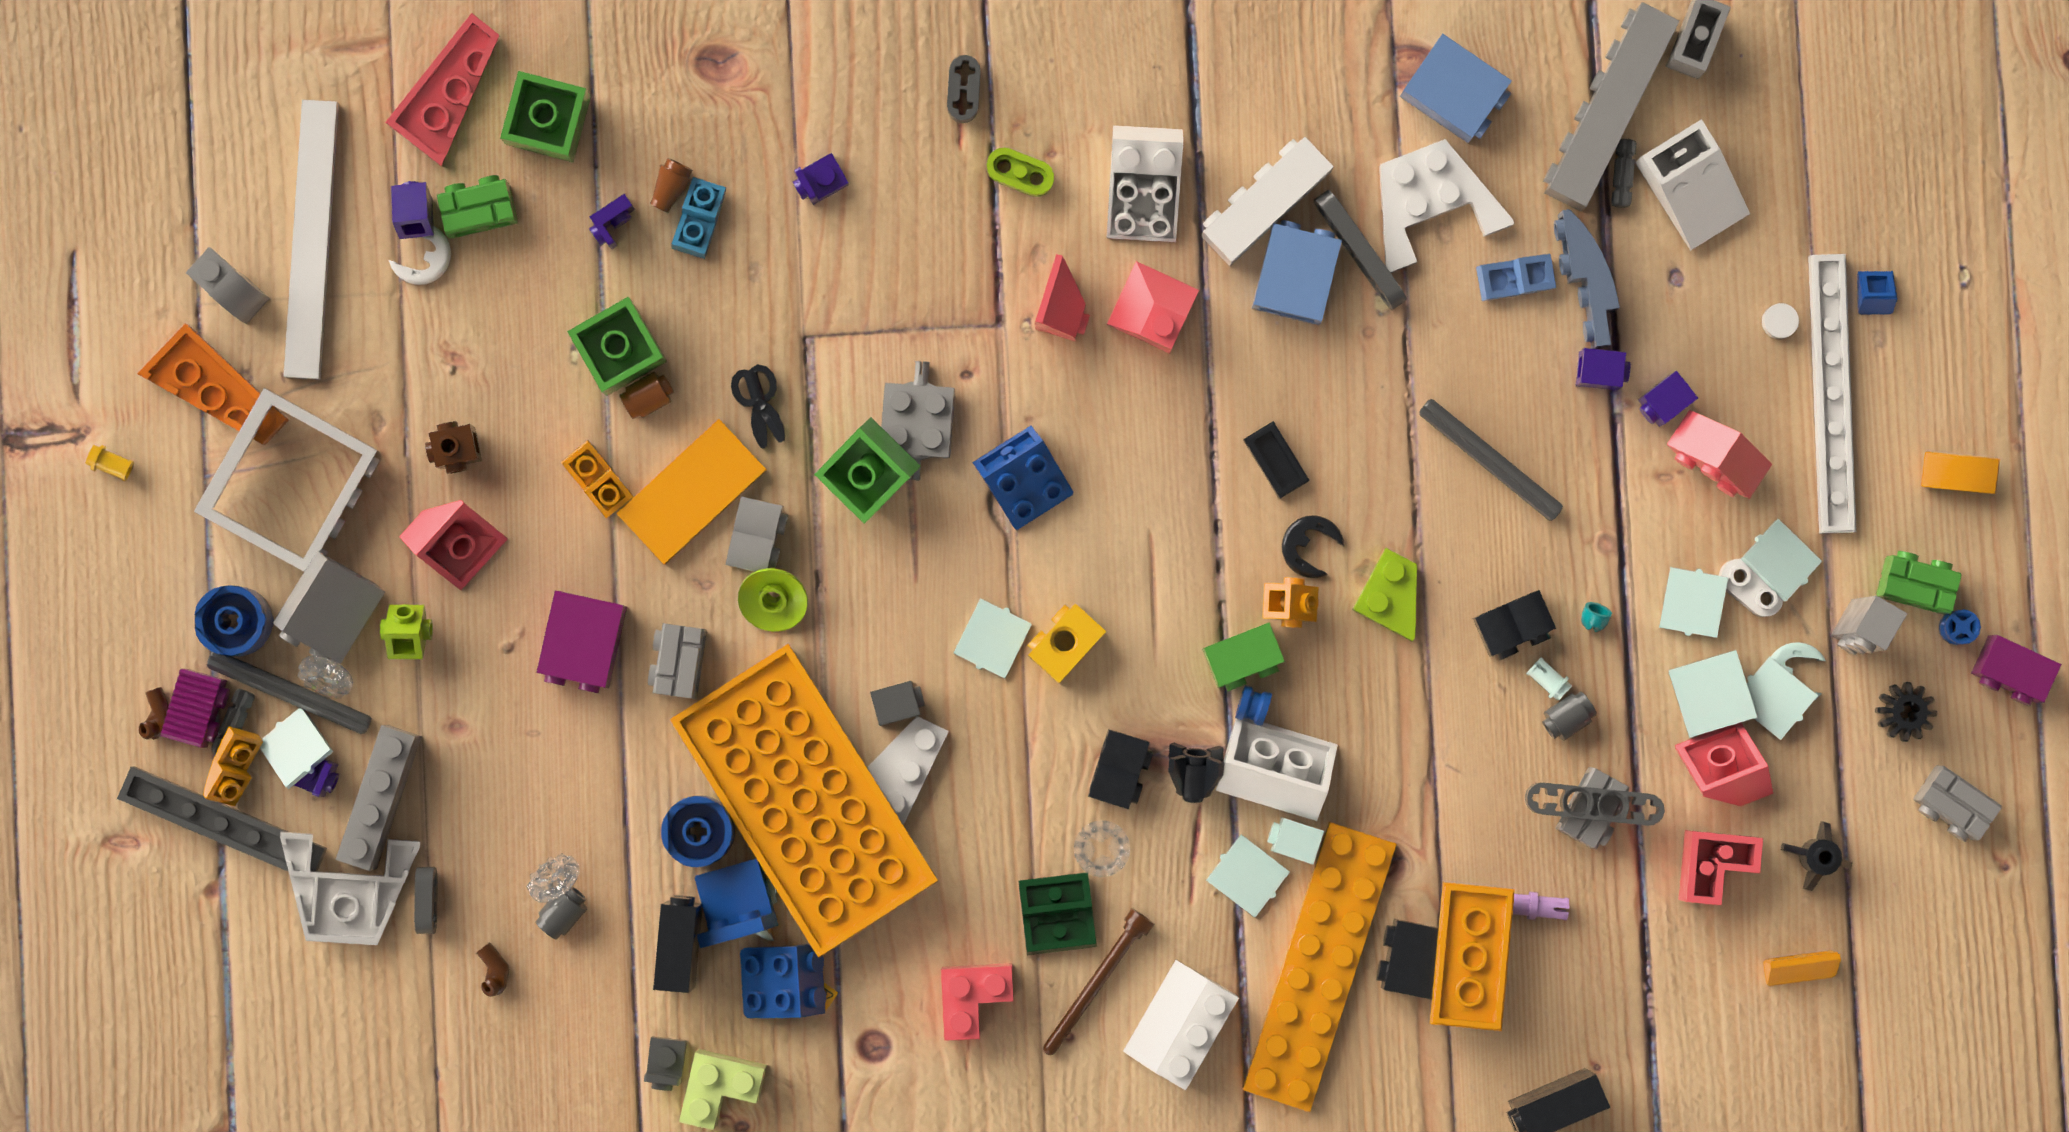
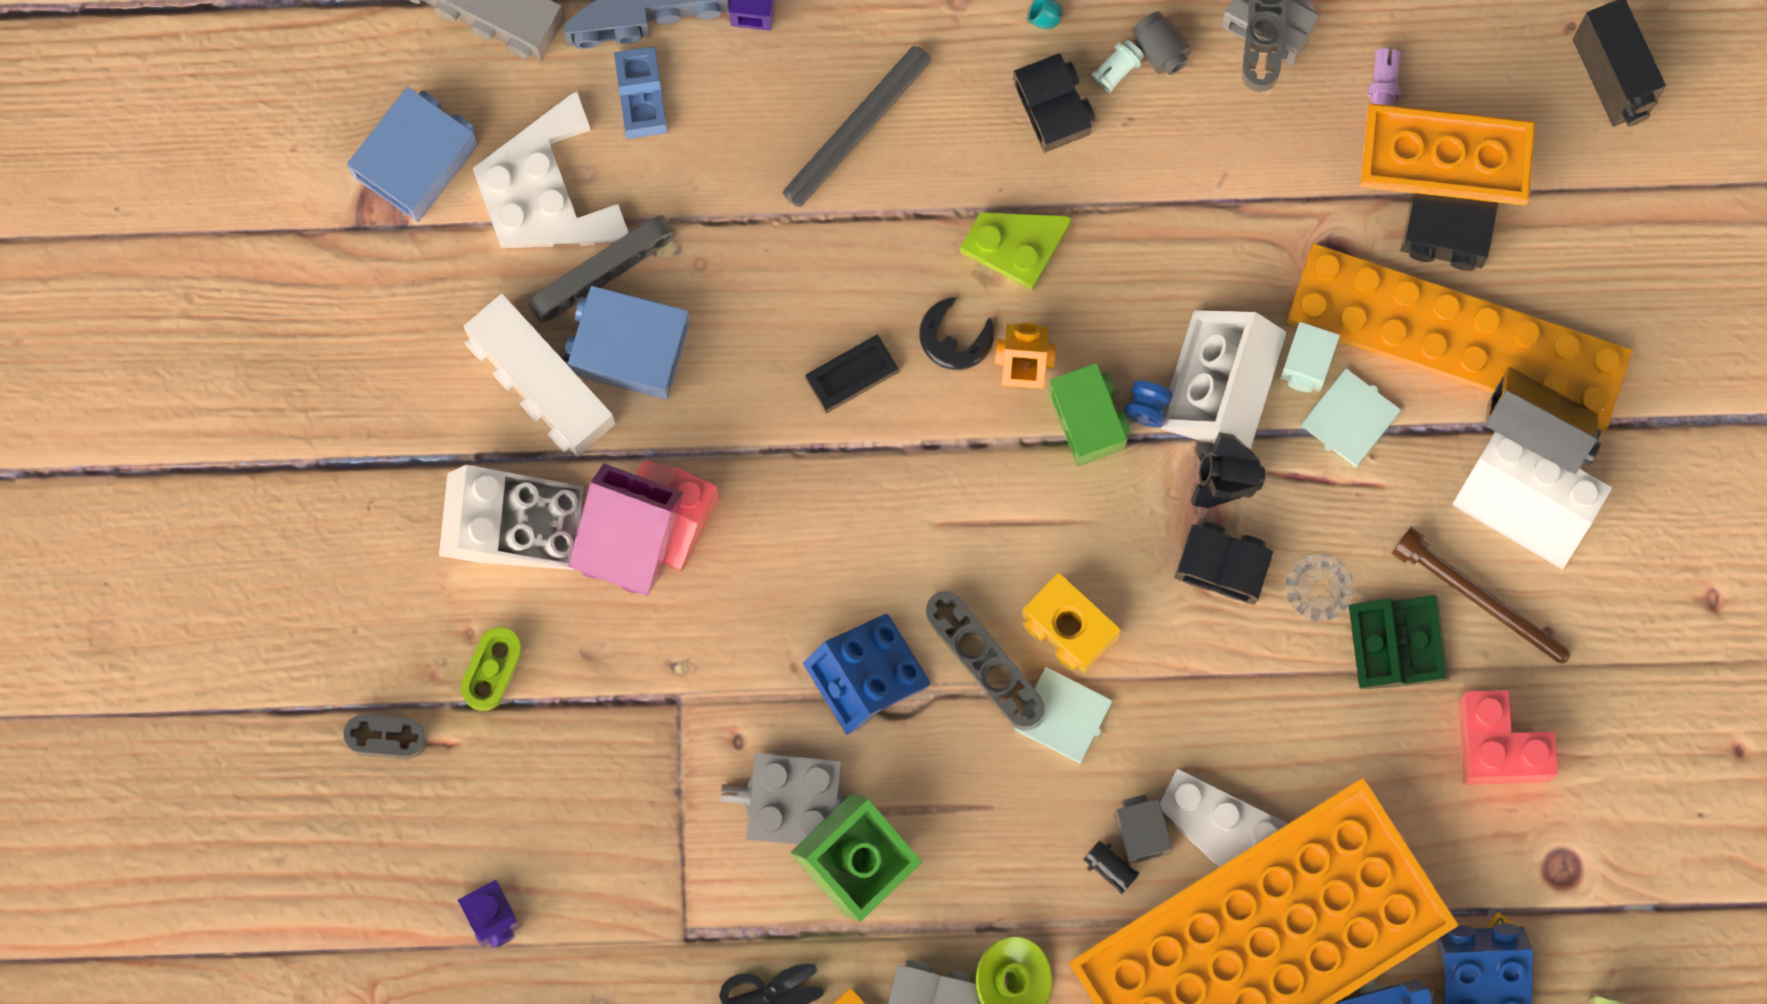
camera: 85 degrees left, 10 degrees down
(867, 677) = (1110, 866): none -> black pin
(1031, 569) = (987, 659): none -> dark grey beam
(1062, 304) = (654, 619): coral slope -> none
(1134, 275) = (625, 529): none -> brick
(1240, 1033) = (1543, 421): none -> brick

